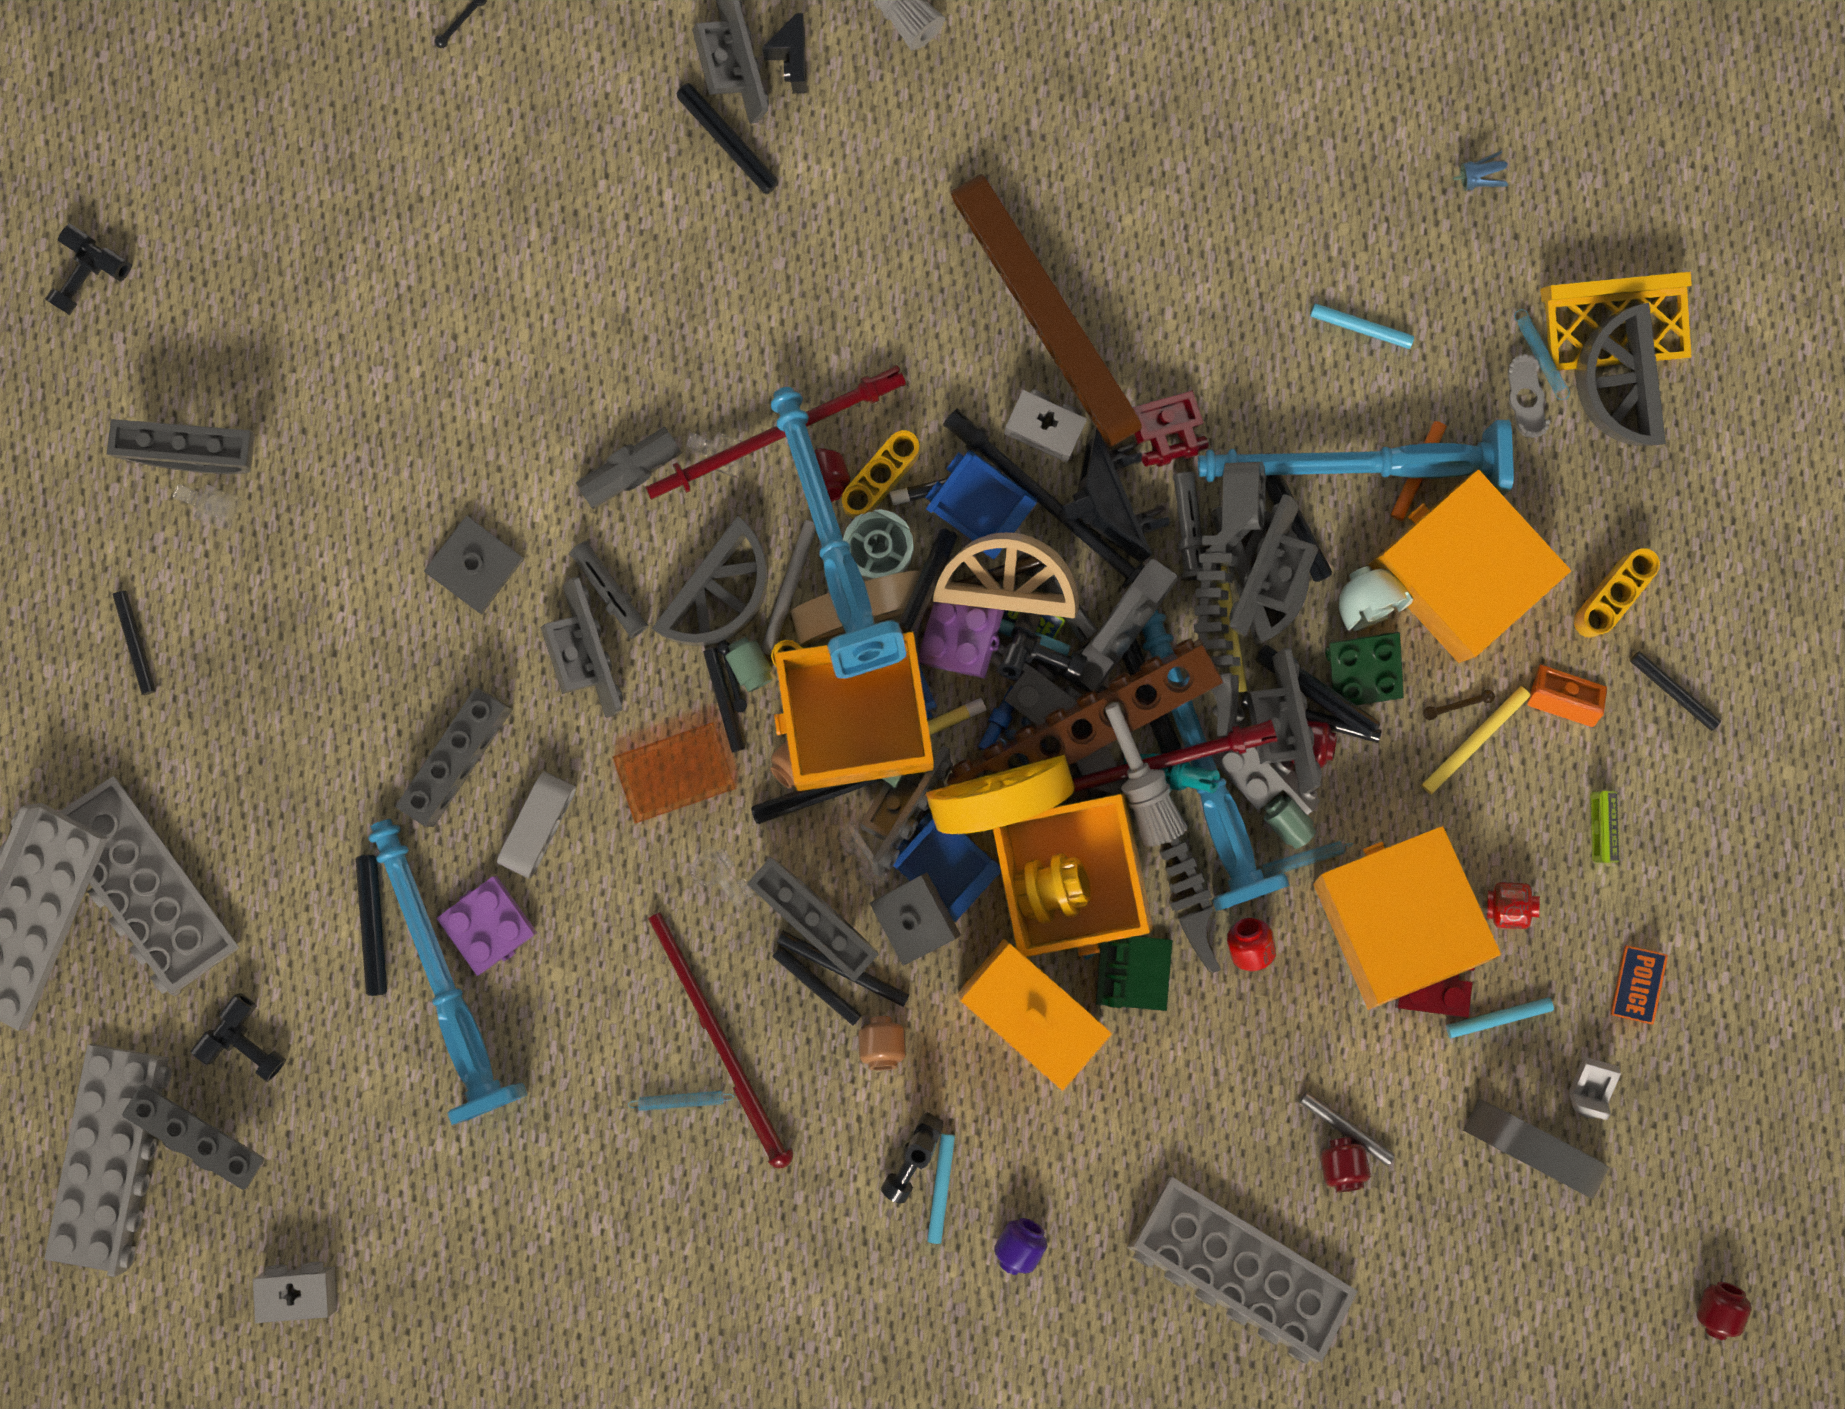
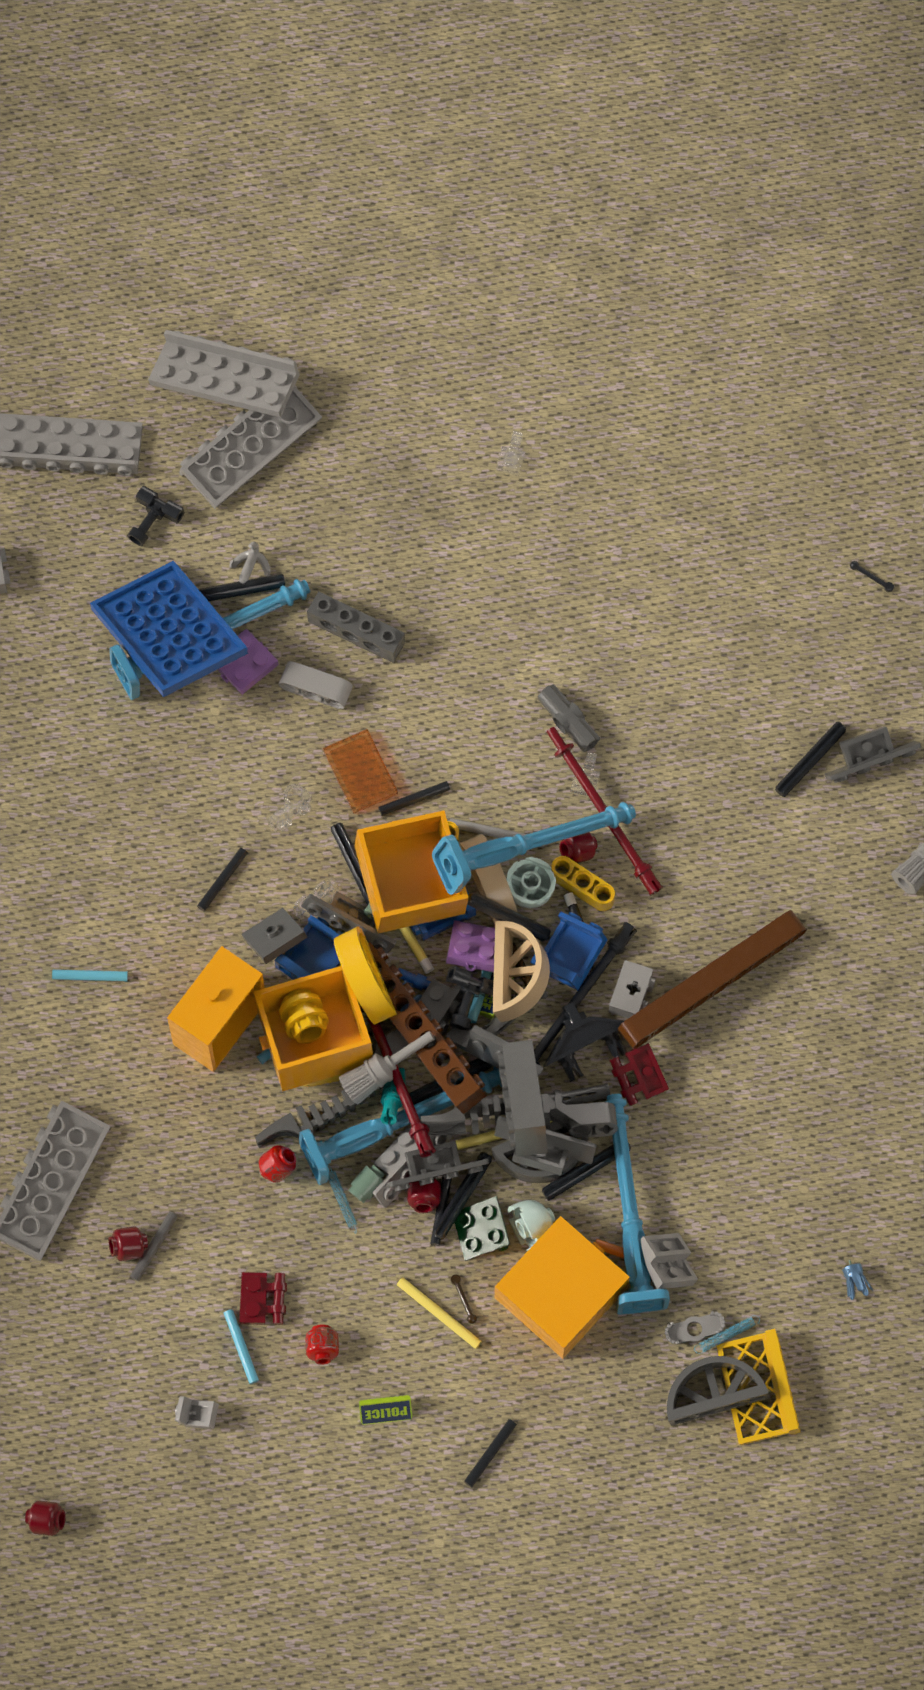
camera: 85 degrees right, 15 degrees down
(89, 259) = (669, 362): black bar -> none
(134, 642) = (413, 419): black bar -> none
(182, 446) = (546, 430): dark grey window -> none
(193, 1137) = (87, 492): dark grey bracket -> none
(322, 898) = (251, 557): none -> light grey piece
(430, 1033) = (168, 628): none -> blue plate
(473, 565) = (490, 626): dark grey plate -> none
(578, 652) = (436, 697): dark grey bracket -> none
(616, 600) = (482, 714): dark grey pin -> none
(680, 1104) = (137, 796): medium azure piece -> none
(702, 579) = (497, 774): dark grey window -> none
(739, 704) = (412, 809): black hinge -> none
(749, 664) = (441, 803): sand green brick -> none
(776, 1152) = (104, 865): dark red bar -> none
(789, 46) = (882, 795): black slope -> none
(813, 918) = (269, 864): dark grey window -> none
(864, 980) = (235, 895): black bar -> none
(882, 1043) = (186, 923): medium nougat head -> none
(917, 1154) = (114, 949): black bar -> none
(1020, 1246) = (54, 1029): dark purple head -> none
(1134, 973) = (250, 1090): dark green hinge -> none
(1221, 583) = (522, 1098): none -> dark grey brick
(1362, 326) = (732, 1206): medium azure bar -> none
(1405, 917) = (305, 1261): light orange container -> none
(1441, 420) = (667, 1262): none -> light grey slope
(1536, 1148) = (147, 1379): dark grey window -> none
(1568, 696) = (478, 1376): orange slope -> none
(1628, 581) = (551, 1389): yellow beam -> none
(1639, 984) = (273, 1442): slope -> none

